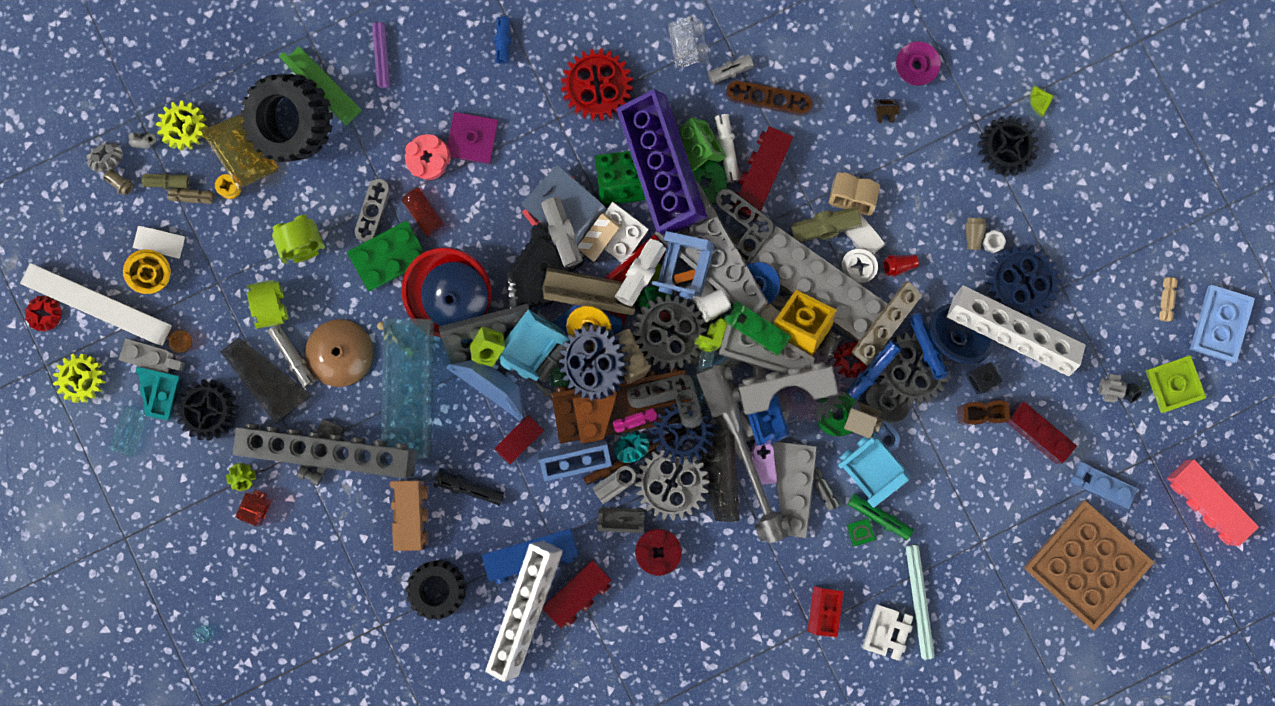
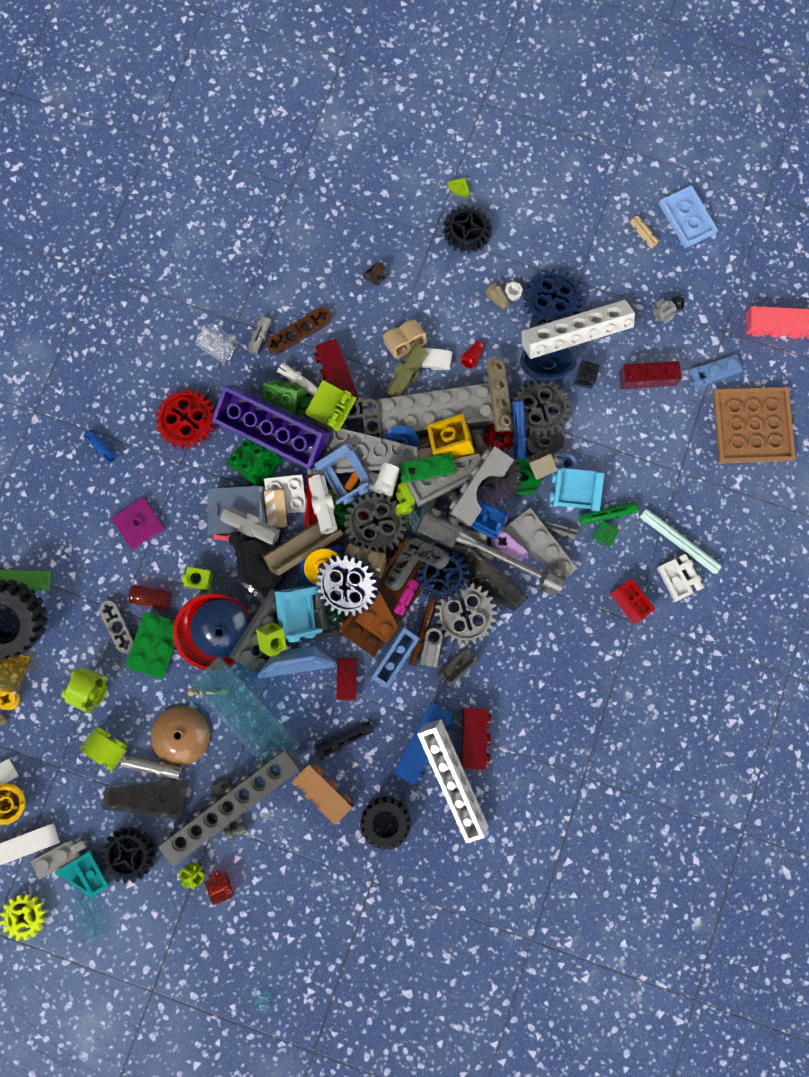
camera: 45 degrees left, 5 degrees down
(180, 341) = (69, 828): clear orange plate -> none
(381, 57) = (30, 526): medium lavender axle -> none
(416, 150) = (130, 557): coral plate -> none
(476, 244) = (203, 585): none -> lime brick
(628, 454) = (423, 621): teal gear -> none
(660, 565) = (506, 655): dark red brick -> none
(728, 193) = (330, 405): none -> lime hinge
(854, 272) = (448, 368): white gear -> none
(919, 53) = (364, 223): magenta dish -> none
(931, 353) = (543, 388): blue pin -> none
(988, 413) = (609, 392): reddish brown brick -> none
(1175, 384) = (697, 275): lime plate -> none

